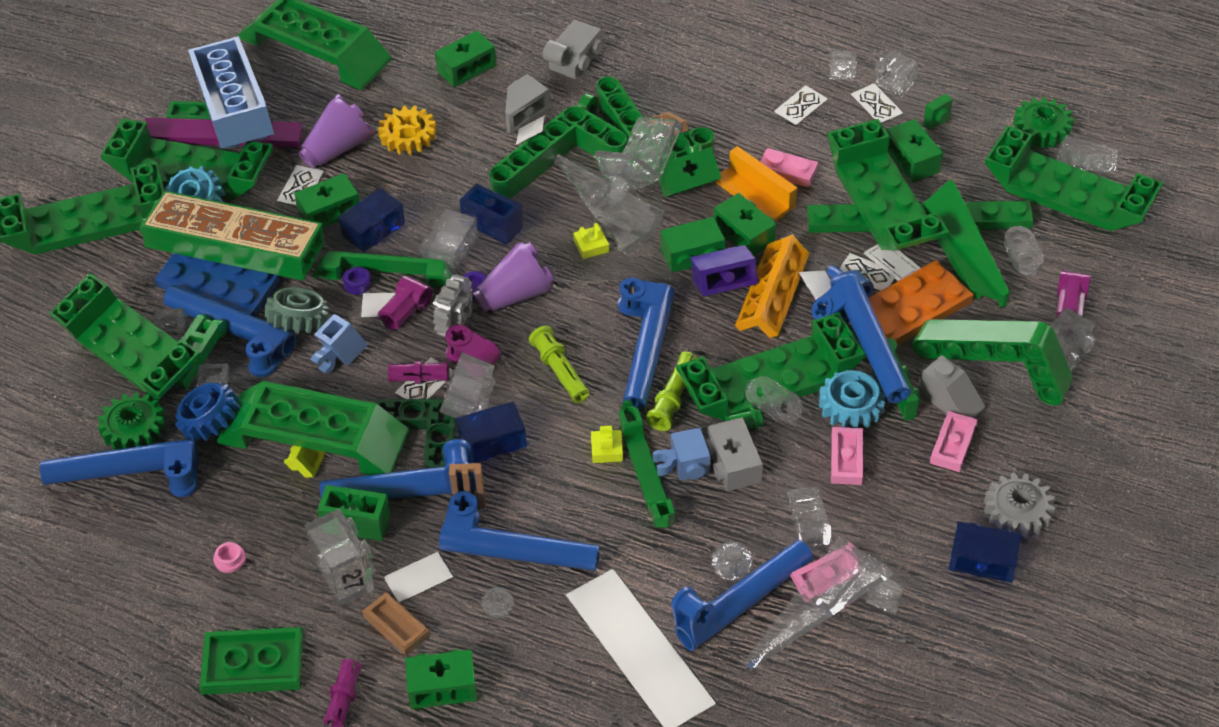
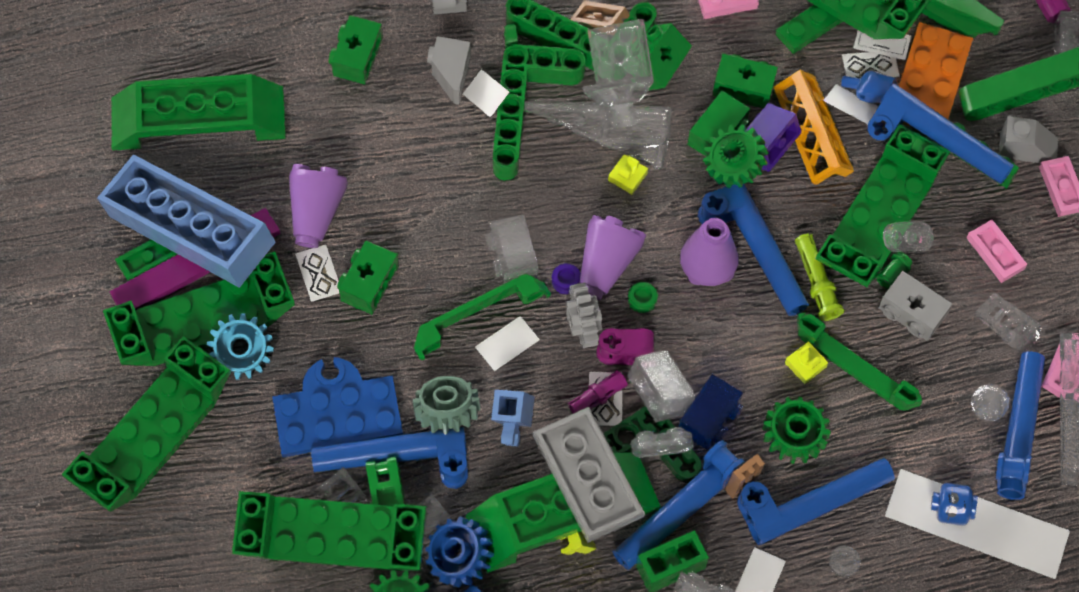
camera: 40 degrees left, 15 degrees up
(233, 235) = (325, 368): brick -> none
(342, 406) = (588, 474): none -> light grey tile
(357, 280) = (461, 338): dark purple tile -> none
(372, 220) = (425, 271): clear blue brick -> none
(407, 130) = (381, 167): yellow gear -> none
(408, 297) = (527, 329): magenta piece -> none
(426, 425) = (672, 442): none -> clear plate
(494, 213) = (534, 198): clear blue brick -> none
(519, 329) = (642, 297): none -> green tile
(547, 484) = (794, 444): none -> green gear
(554, 356) = (694, 305): lime pin -> none
(597, 320) = (710, 254): none -> medium lavender cone
(625, 613) = (954, 504): none -> blue head
(675, 260) = (740, 170): none -> green gear
(687, 454) = (880, 331): medium blue brick -> none
(759, 184) = (721, 33): light orange panel -> none
(852, 399) = (976, 193): medium azure gear -> none

